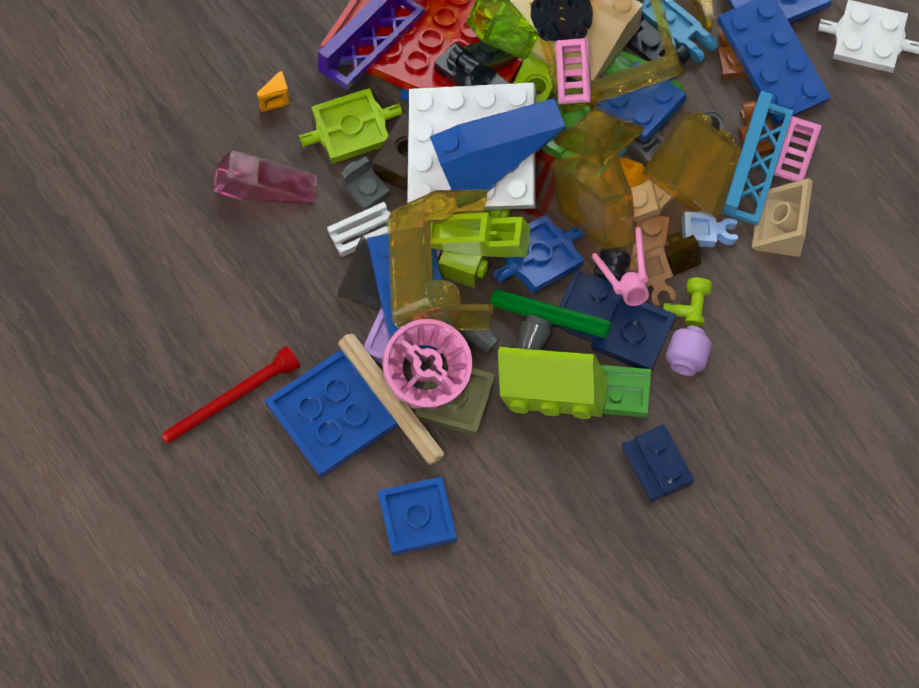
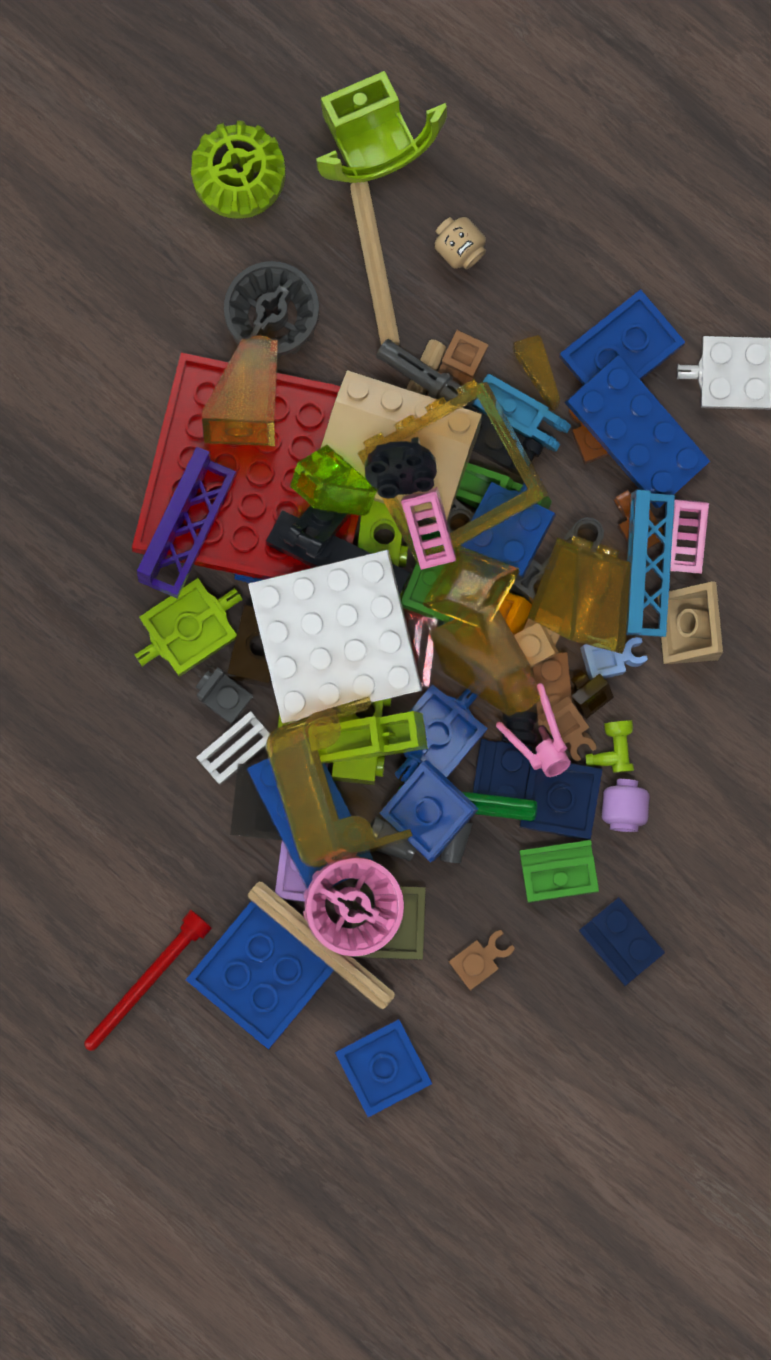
camera: 15 degrees left, 15 degrees up
(263, 180) = (111, 719): clear pink slope -> none
(273, 94) = (92, 610): light orange slope -> none
(489, 148) = (357, 646): blue wedge -> none
(518, 308) = (431, 809): none -> blue plate
(524, 451) = (477, 963): none -> medium nougat plate
(552, 382) = (491, 892): lime slope -> none

